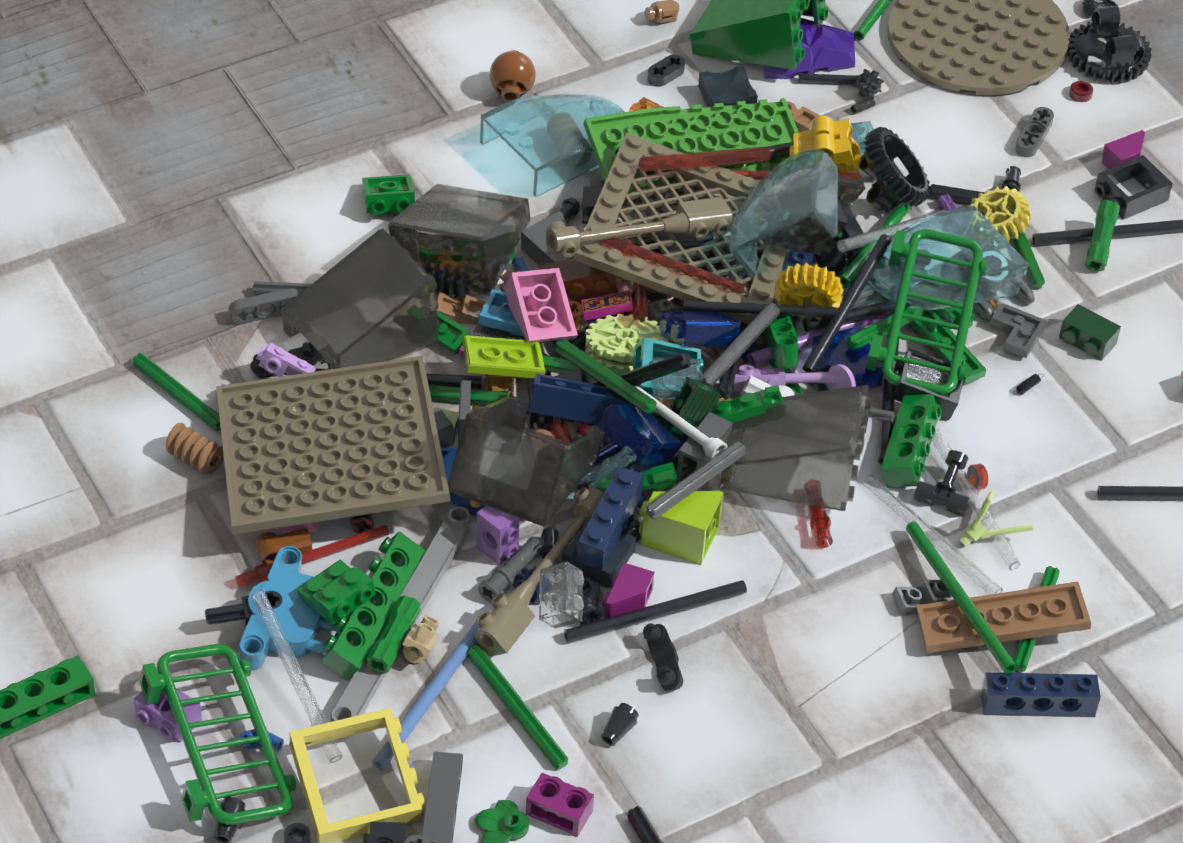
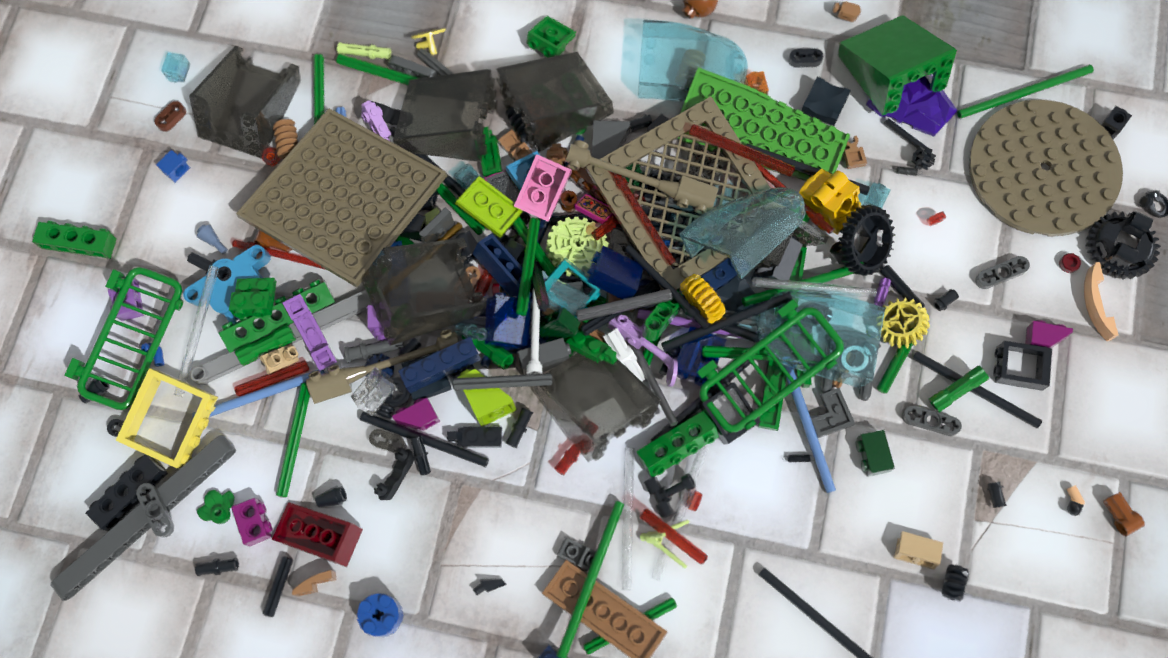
camera: 50 degrees right, 25 degrees up
(21, 516) = (170, 116): none -> copper beam
(79, 555) = (173, 165): none -> blue brick
(108, 449) = (242, 103): none -> clear smoke windscreen
(187, 480) = (270, 156): none -> clear red tile
(197, 318) = (361, 50): none -> yellowish green pin
(201, 592) = (208, 235): none -> sand blue cone
(222, 332) = (374, 69): none -> green axle
(258, 270) = (430, 41): none -> light yellow shield
(426, 671) = (272, 378): none -> clear red axle
(430, 594) = (310, 332): none -> medium lavender slope
(444, 360) = (466, 175): none -> clear light blue piece
(619, 639) = (388, 437): none -> clear smoke beam
(642, 763) = (317, 534): none -> dark red slope
(671, 622) = (420, 455): none -> black axle
(691, 806) = (310, 585): none -> medium nougat slope
(708, 572) = (477, 437): none -> black hinge
(742, 534) = (519, 428): none -> black pin
(792, 780) = (370, 608): none -> blue brick
(865, 685) = (489, 585): none -> black bar
(933, 123) = (937, 218): none -> clear red tile
(994, 512) = (673, 536): none -> clear red axle
(1014, 352) = (811, 435): none -> medium blue piece
(1091, 285) = (918, 411): none -> dark grey beam
(1138, 107) = (1105, 325): none -> light nougat slope

